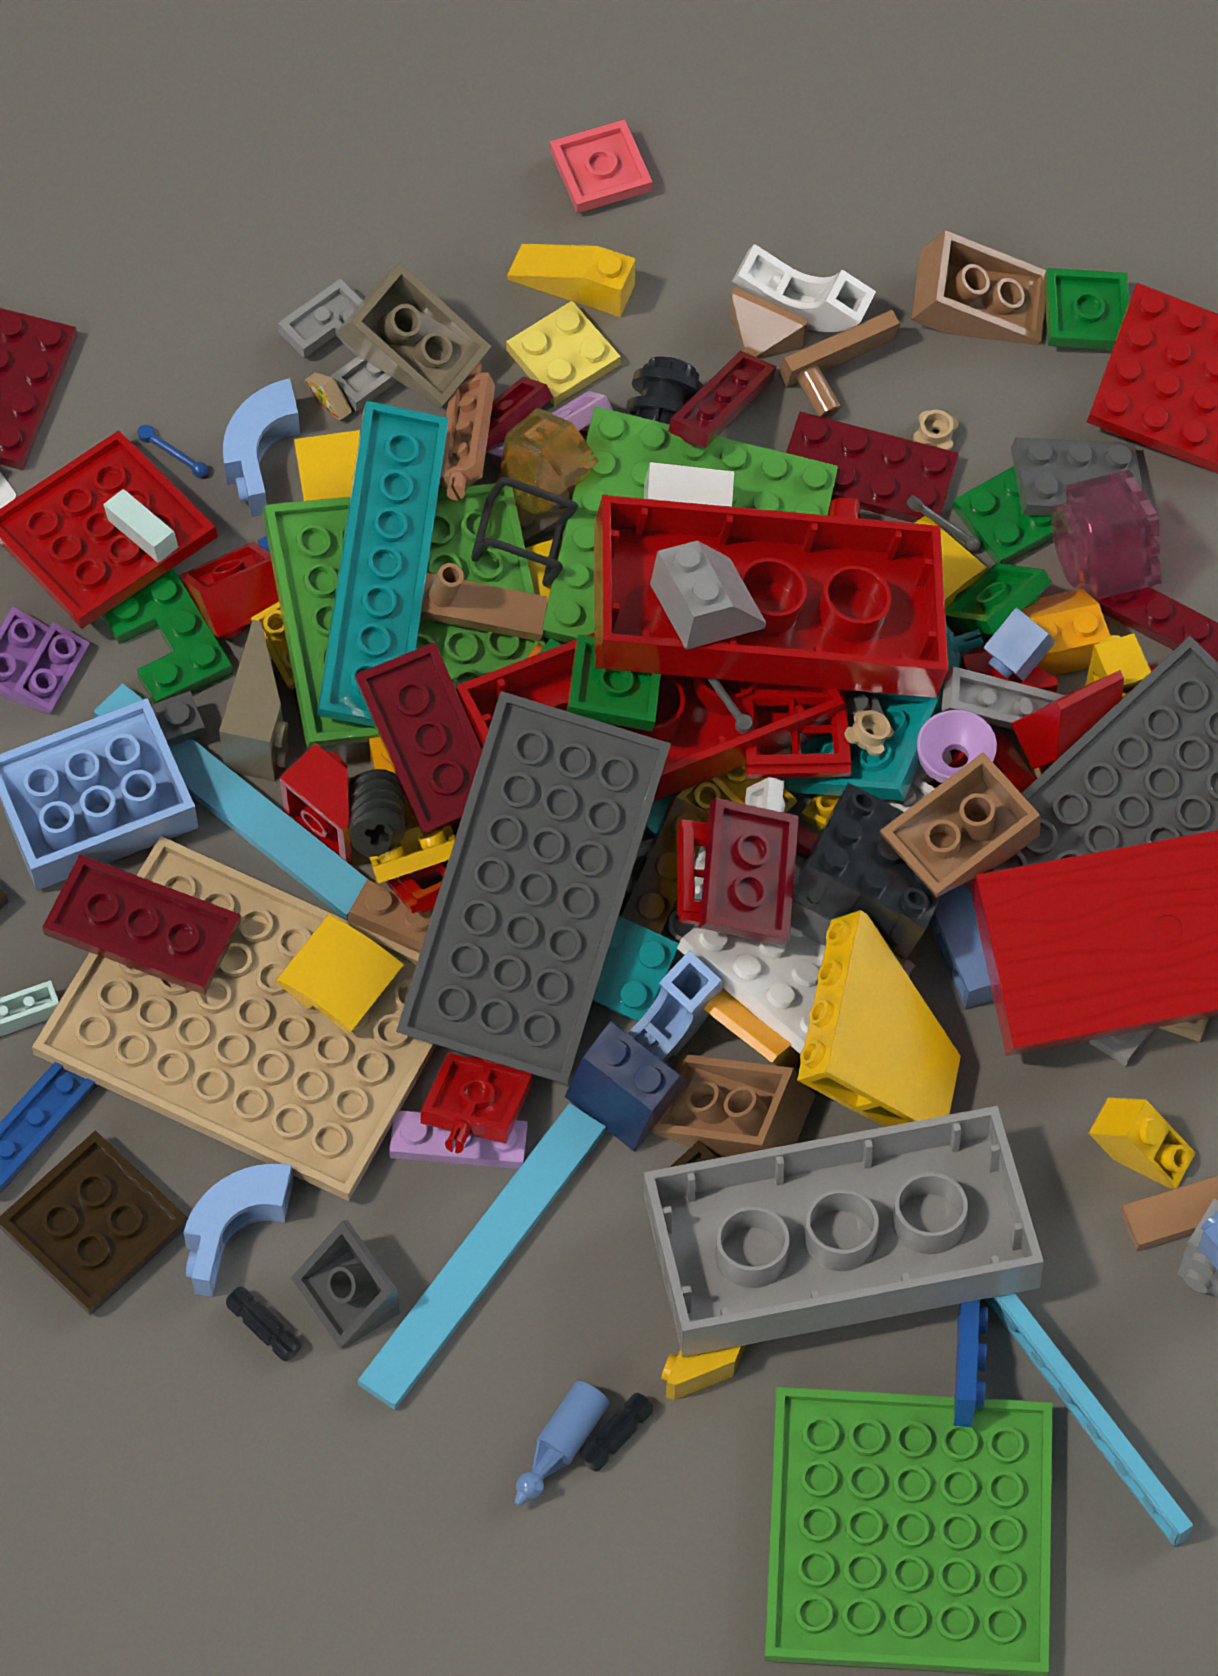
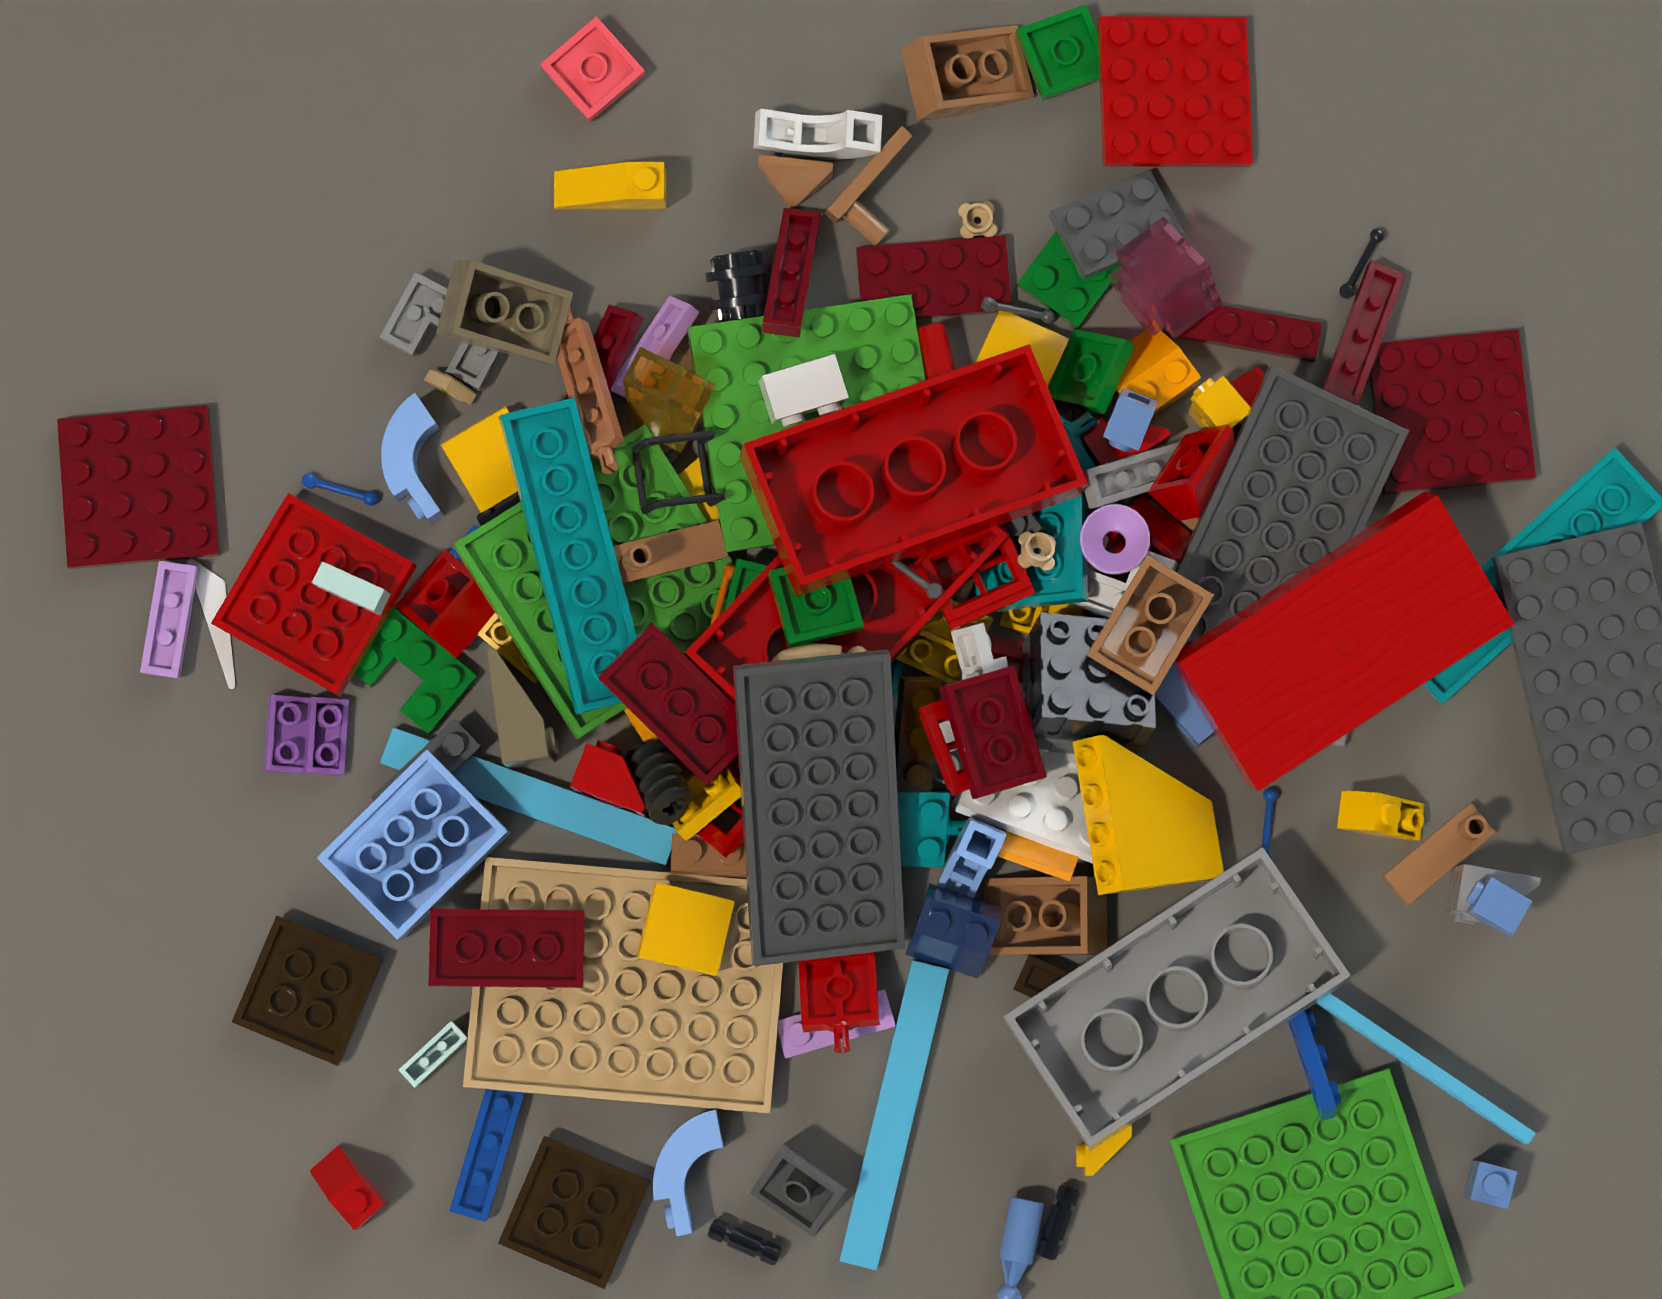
camera: 15 degrees left, 20 degrees up
(563, 352) = (632, 266): light yellow plate -> none
(703, 595) = (868, 509): light grey slope -> none
(1028, 1084) = (1270, 796): none -> blue hinge
(1120, 1567) = (1490, 1184): none -> medium blue brick

